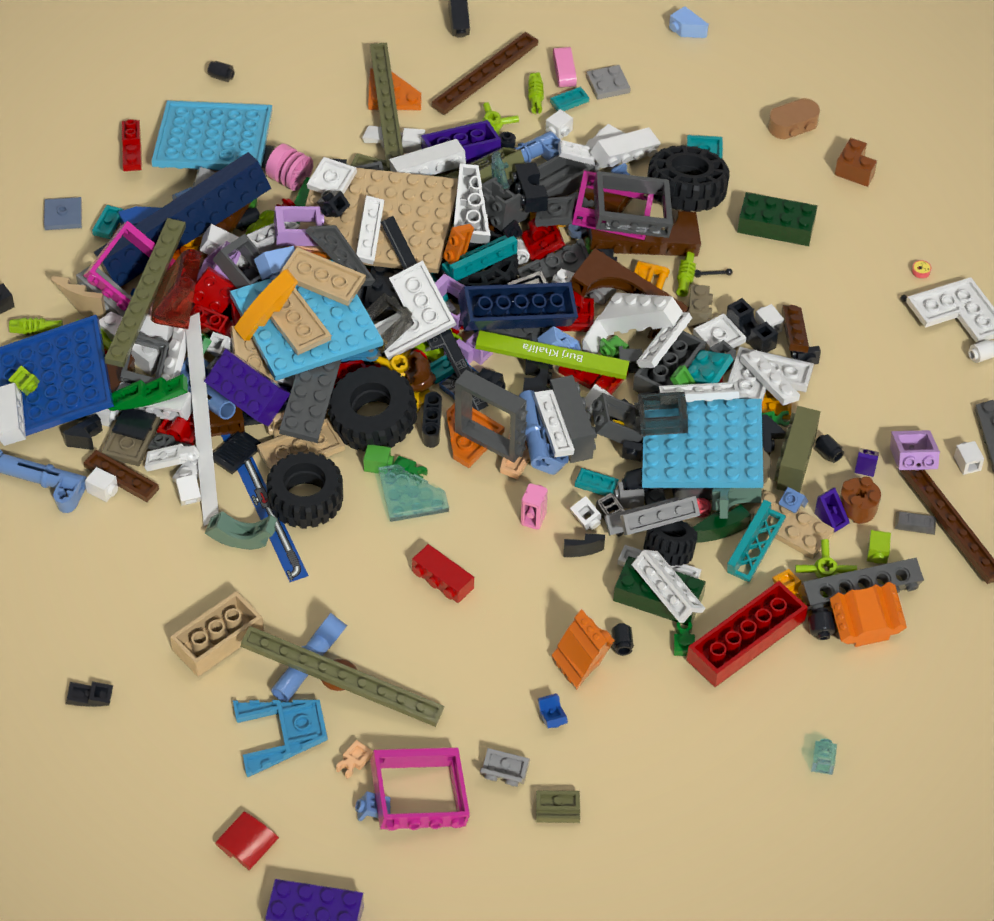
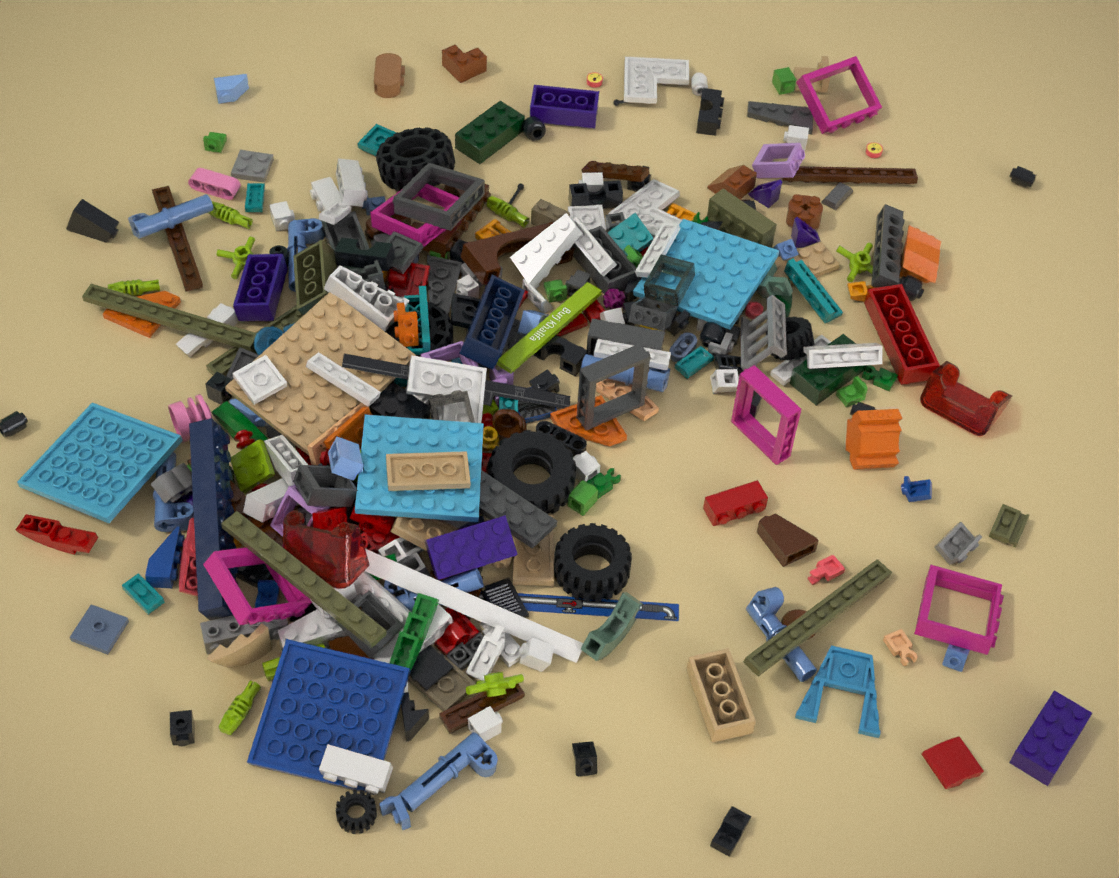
camera: 65 degrees left, 0 degrees up
(24, 380) = (325, 735): lime bracket -> none
(105, 563) = (585, 758): none -> black bracket
(135, 469) = (494, 684): none -> lime bar
(266, 303) = (407, 481): light orange slope -> none
(295, 237) = (303, 443): lavender window -> none
(324, 276) = (390, 430): tan plate -> none
(333, 203) = (295, 390): black brick -> none
(338, 249) = (365, 407): dark grey wing -> none
(409, 72) = (135, 287): none -> lime hinge
(409, 494) = (635, 491): clear light blue plate -> none
(410, 672) = (827, 568): none -> coral plate
(413, 447) = (586, 466): none -> white brick
(423, 626) = (786, 539): none -> reddish brown slope
(431, 159) = (277, 309): white brick -> none
(478, 45) = (145, 225): none -> medium blue piece
(498, 169) = (333, 261): clear light blue slope -> none
(534, 506) = (704, 408): bright pink brick -> none
(536, 551) = (774, 448): none -> dark pink window
(609, 466) = (680, 348): none -> sand blue plate
(616, 46) = (214, 142): none -> bright green bracket
(629, 391) = (614, 299): none -> magenta gear
(645, 622) = (852, 393): none -> bright green bracket
(697, 714) = (961, 404): none -> clear red windscreen
(769, 377) = (660, 206): white plate -> none
(809, 248) = (533, 128): none -> black head
(824, 756) = (1032, 342): clear light blue brick -> none
(855, 257) = (565, 106): none -> dark purple brick
(859, 431) = (736, 180): none -> dark orange slope
(878, 547) = (854, 224): lime brick -> none
(934, 378) = (710, 112): none -> black arch

